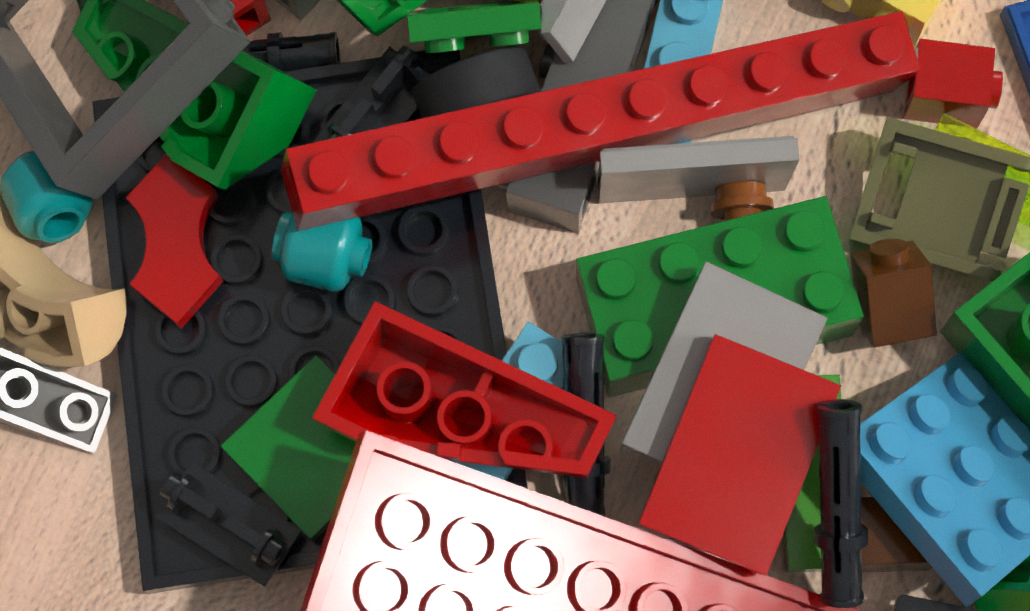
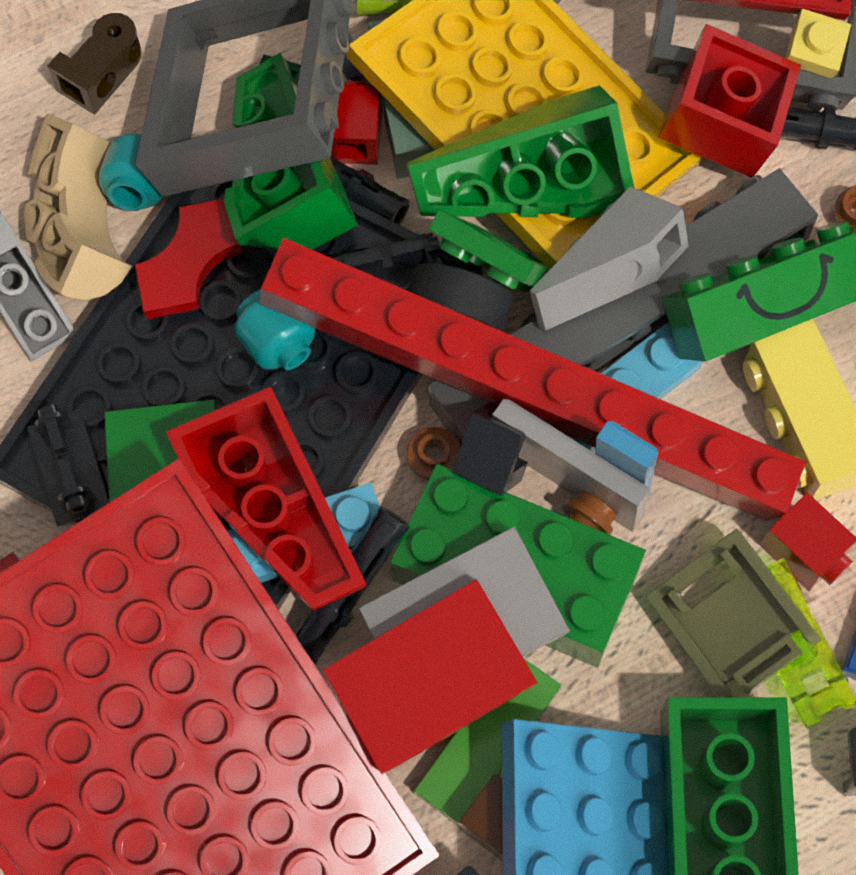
camera: 35 degrees right, 5 degrees down
(549, 270) = (421, 464): none -> dark orange plate
(621, 210) = (491, 452): none -> black panel
(756, 117) = (627, 452): none -> dark azure tile
(840, 530) = (461, 784): black pin -> none
(894, 292) = (642, 655): reddish brown brick -> none

